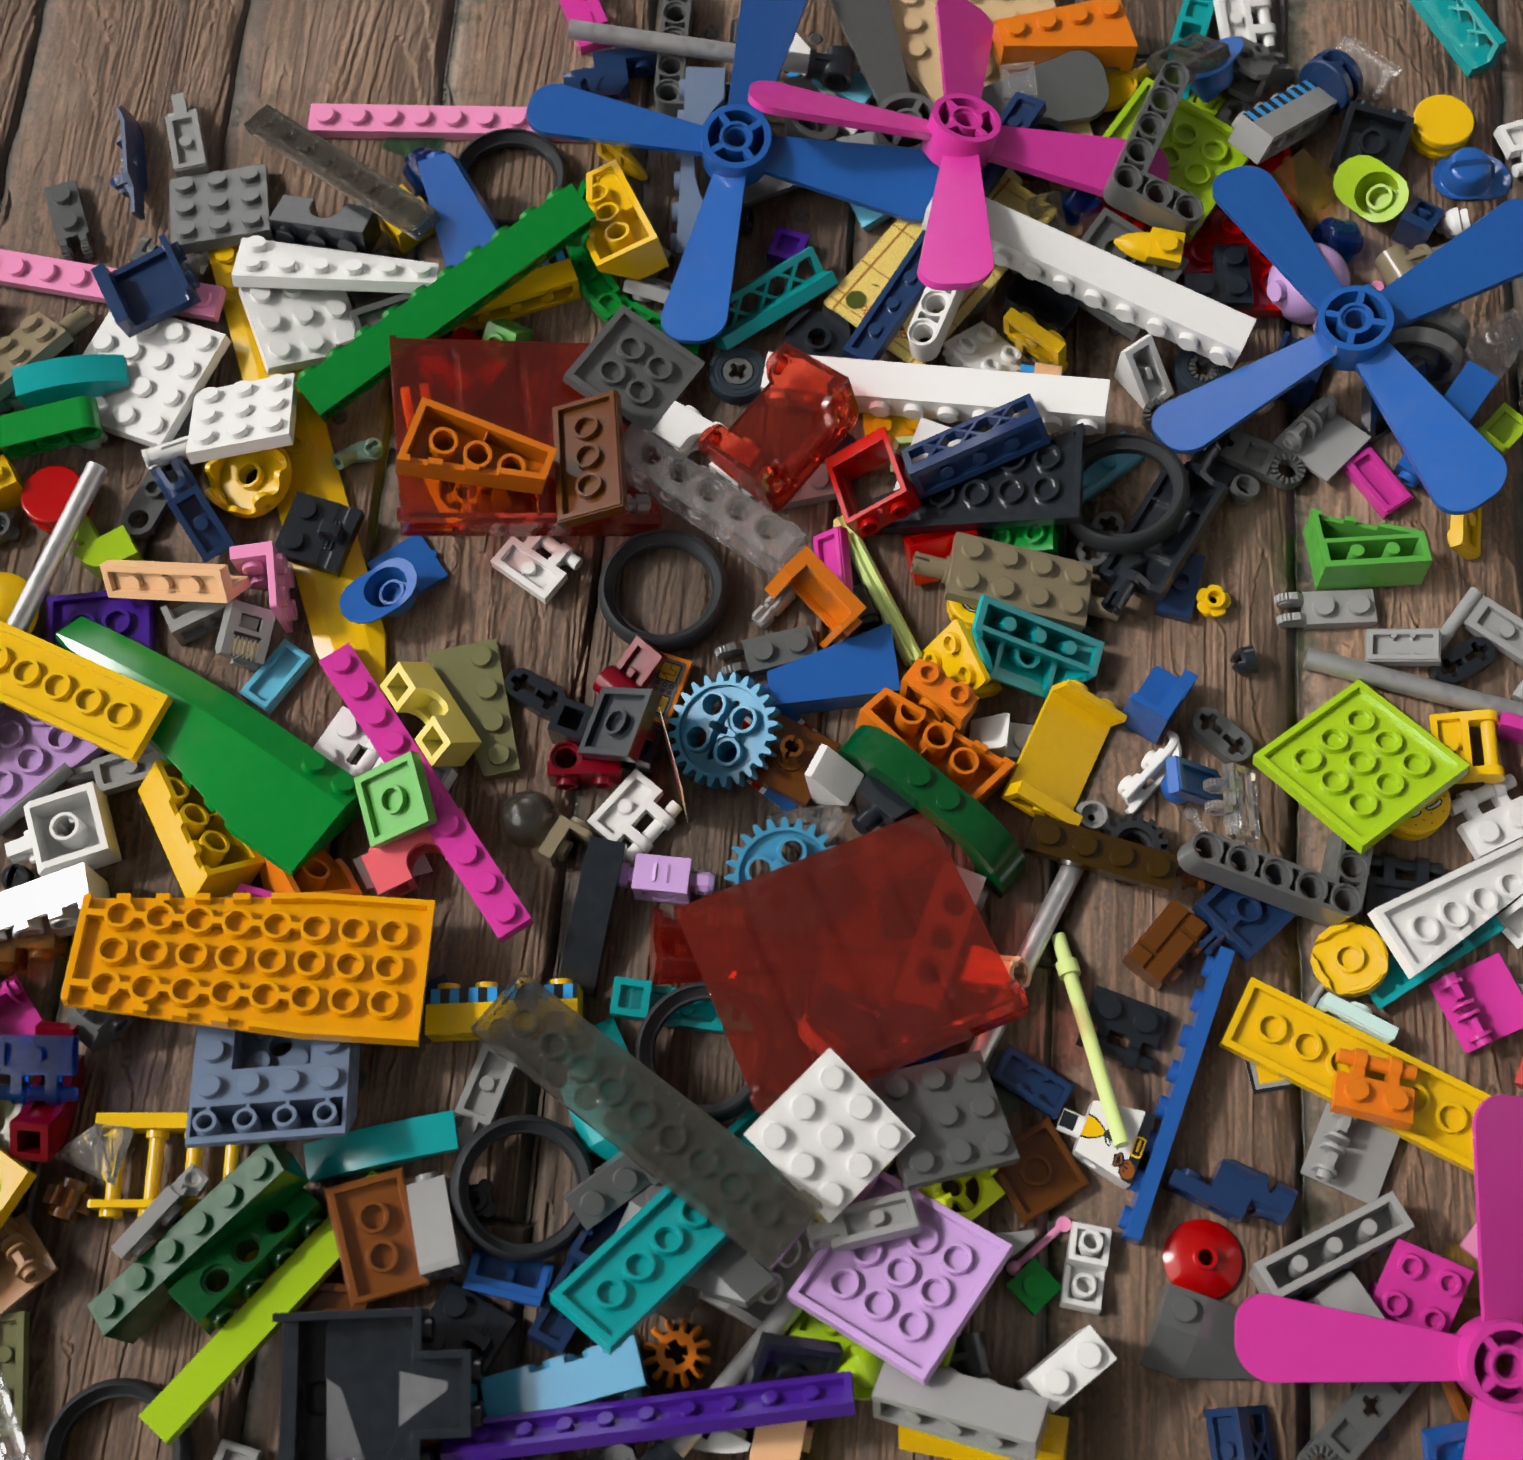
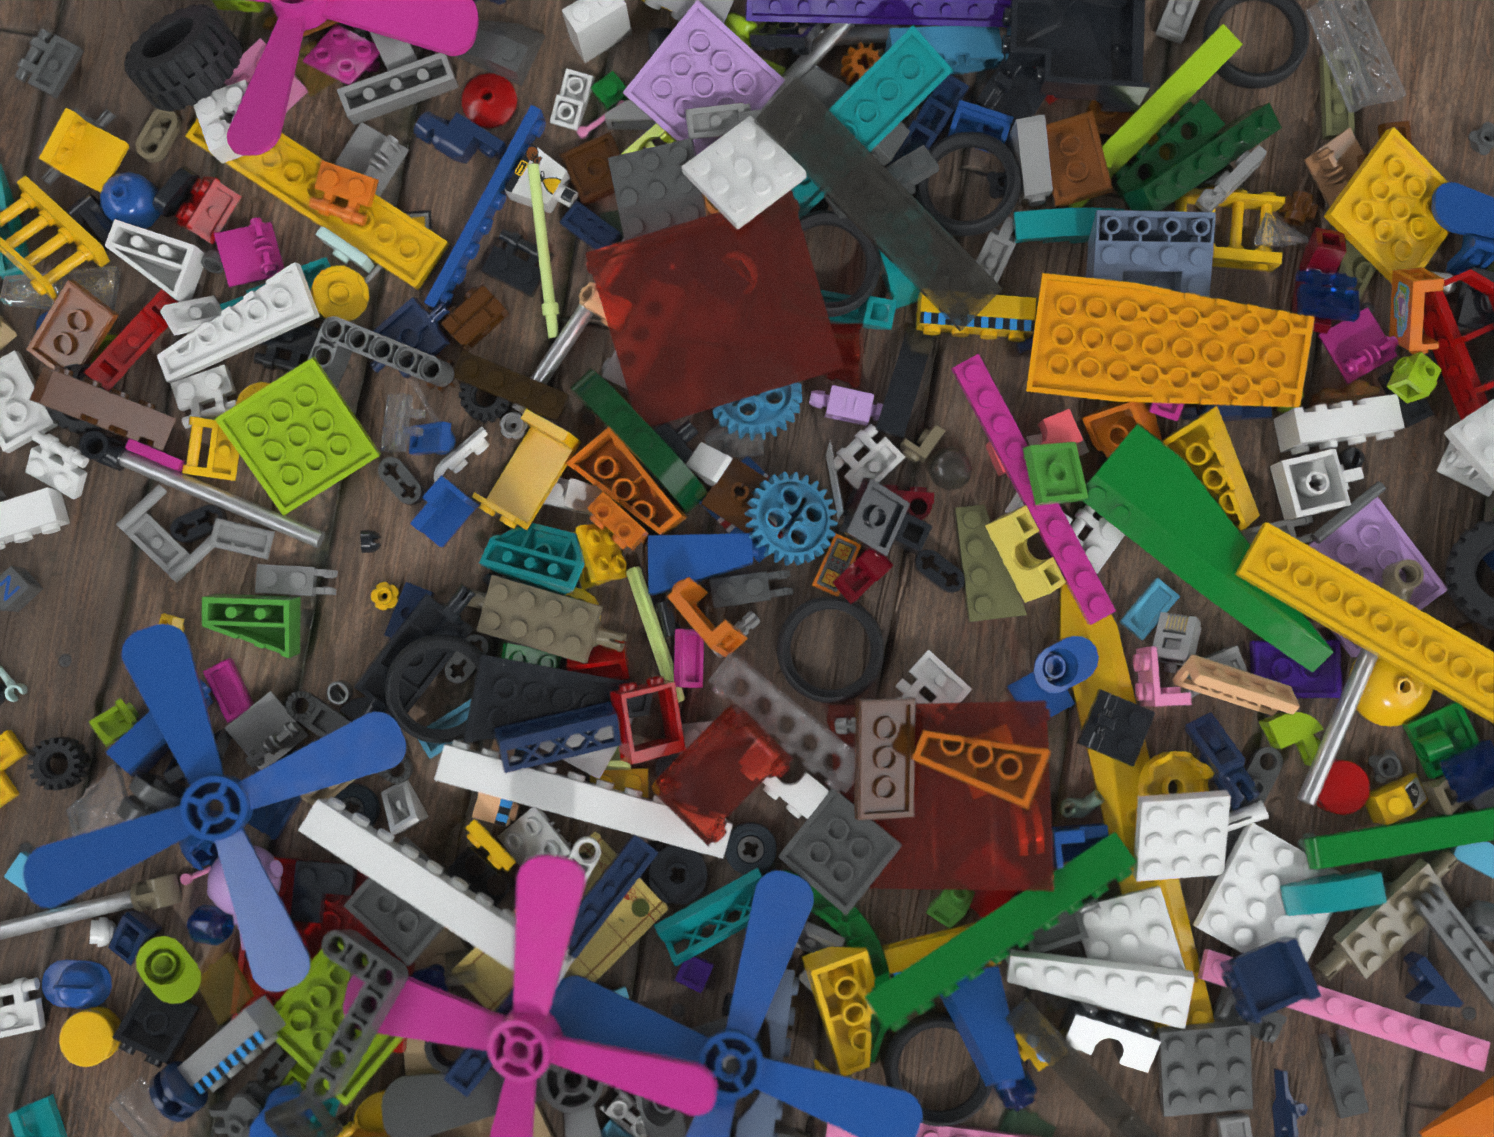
camera: 170 degrees left, 15 degrees up
(367, 415) = (1074, 840): none -> blue panel
(1019, 78) = (463, 1112): clear plate -> none
(1155, 247) = (372, 920): yellow plate -> none

